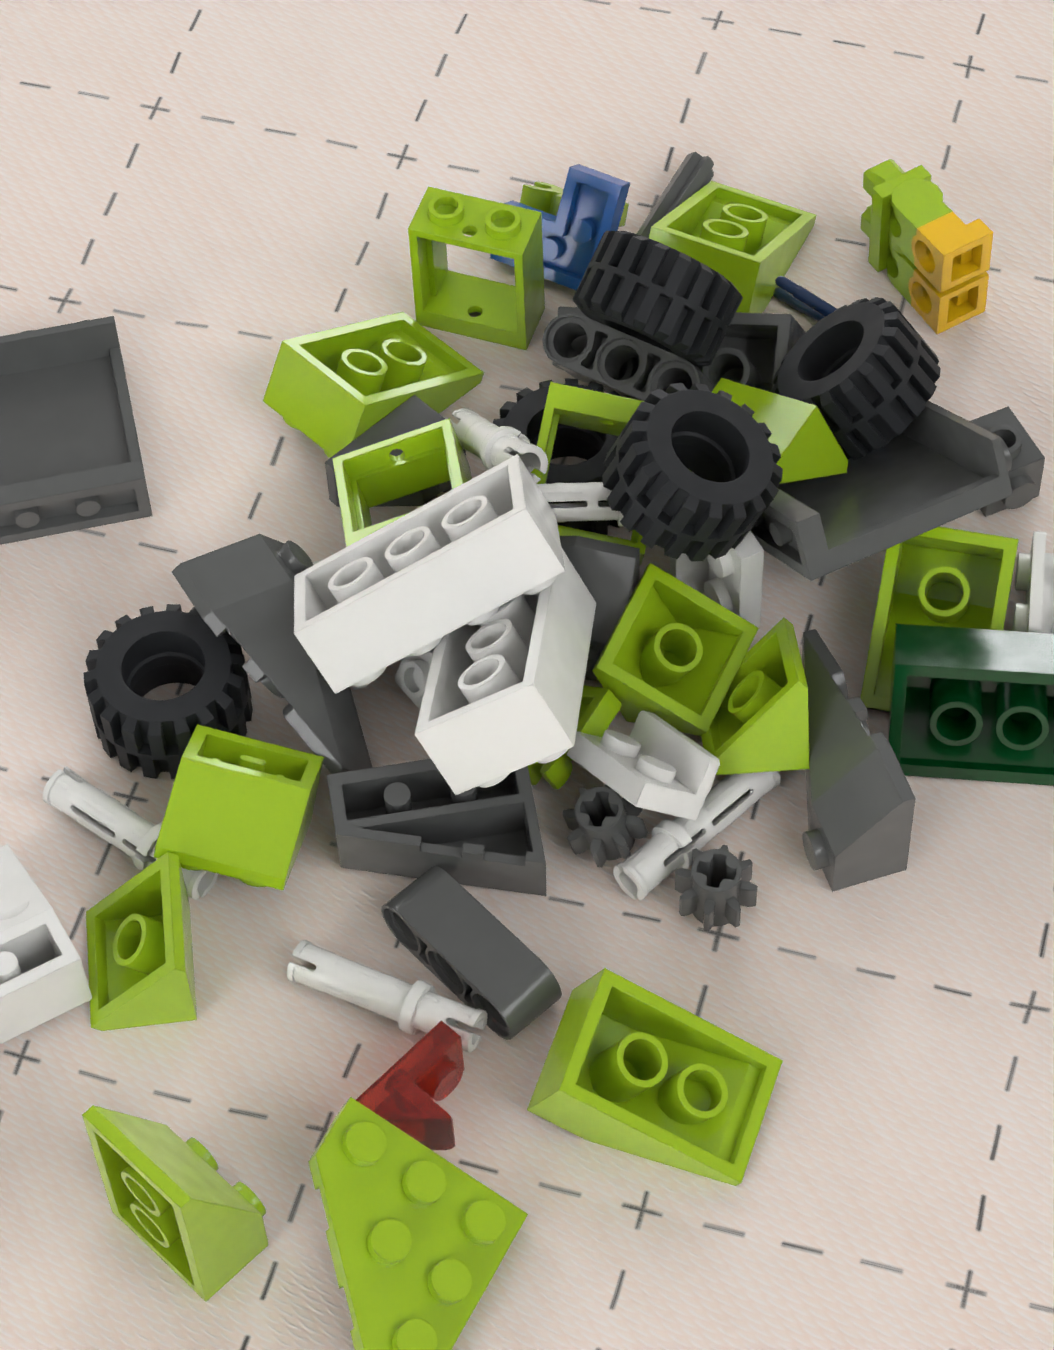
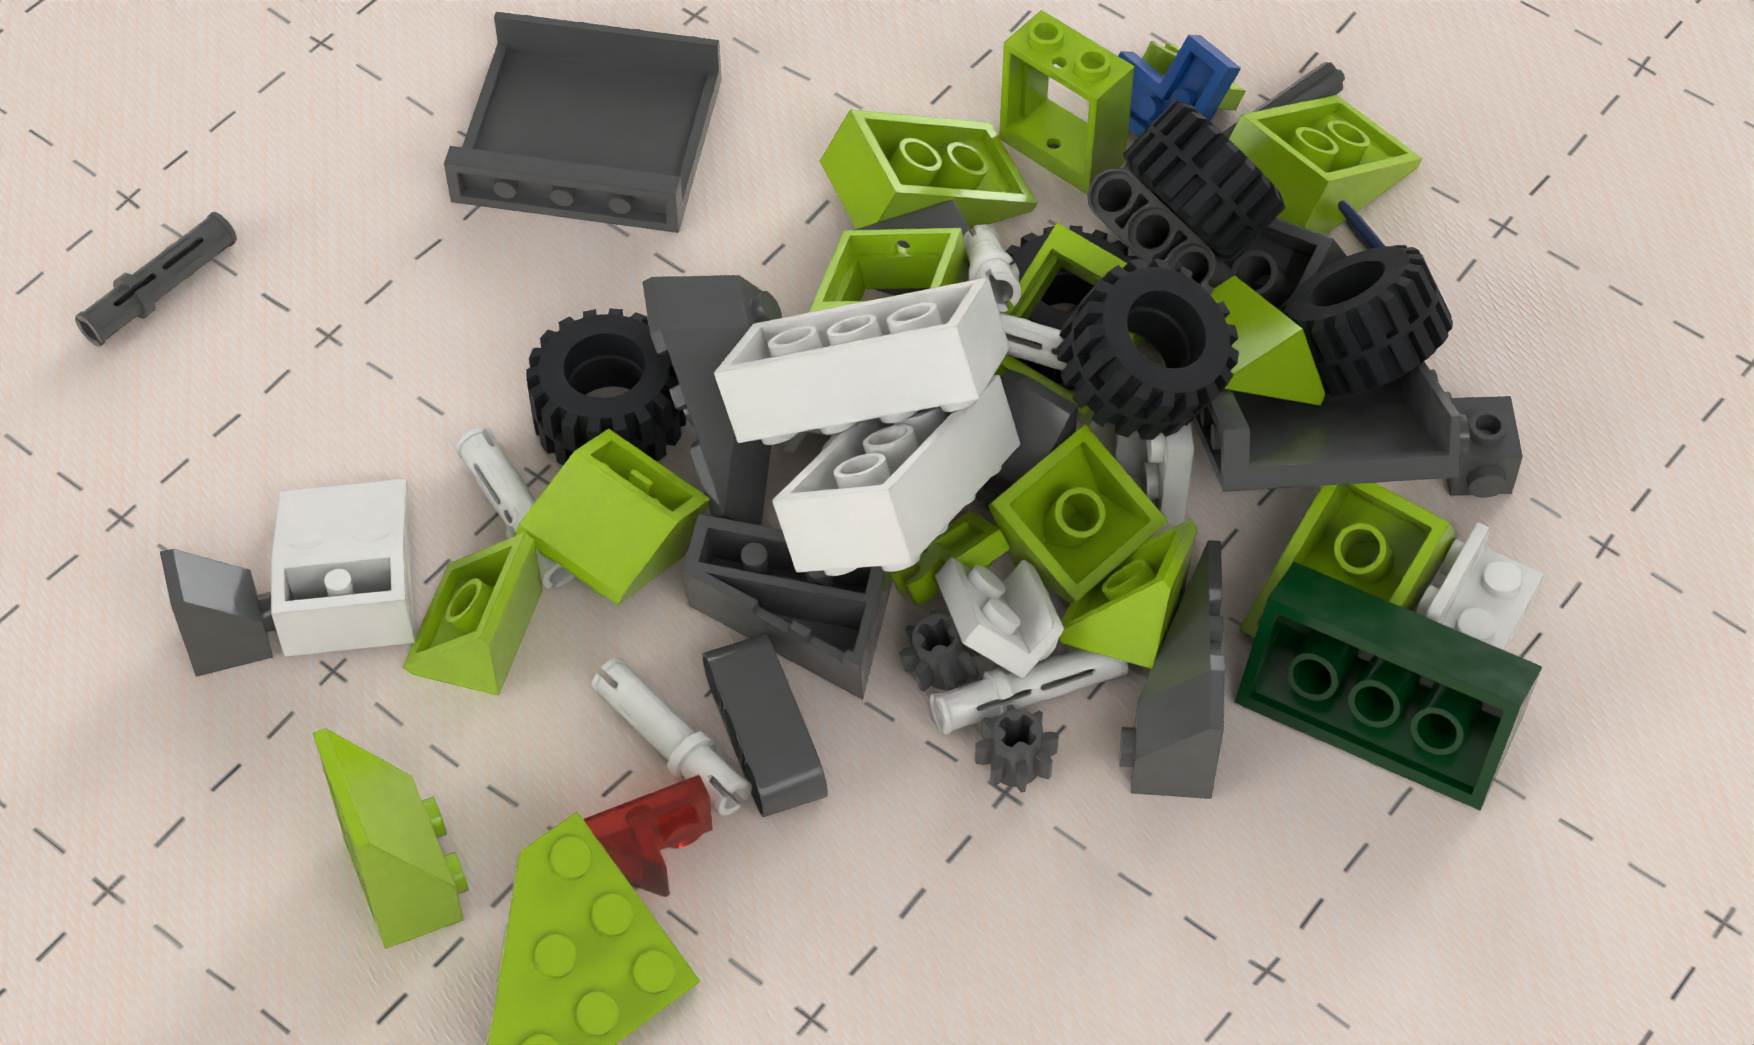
camera: 20 degrees right, 0 degrees up
(654, 1080) = (875, 905): lime slope -> none
(925, 246) = (1506, 227): hips -> none

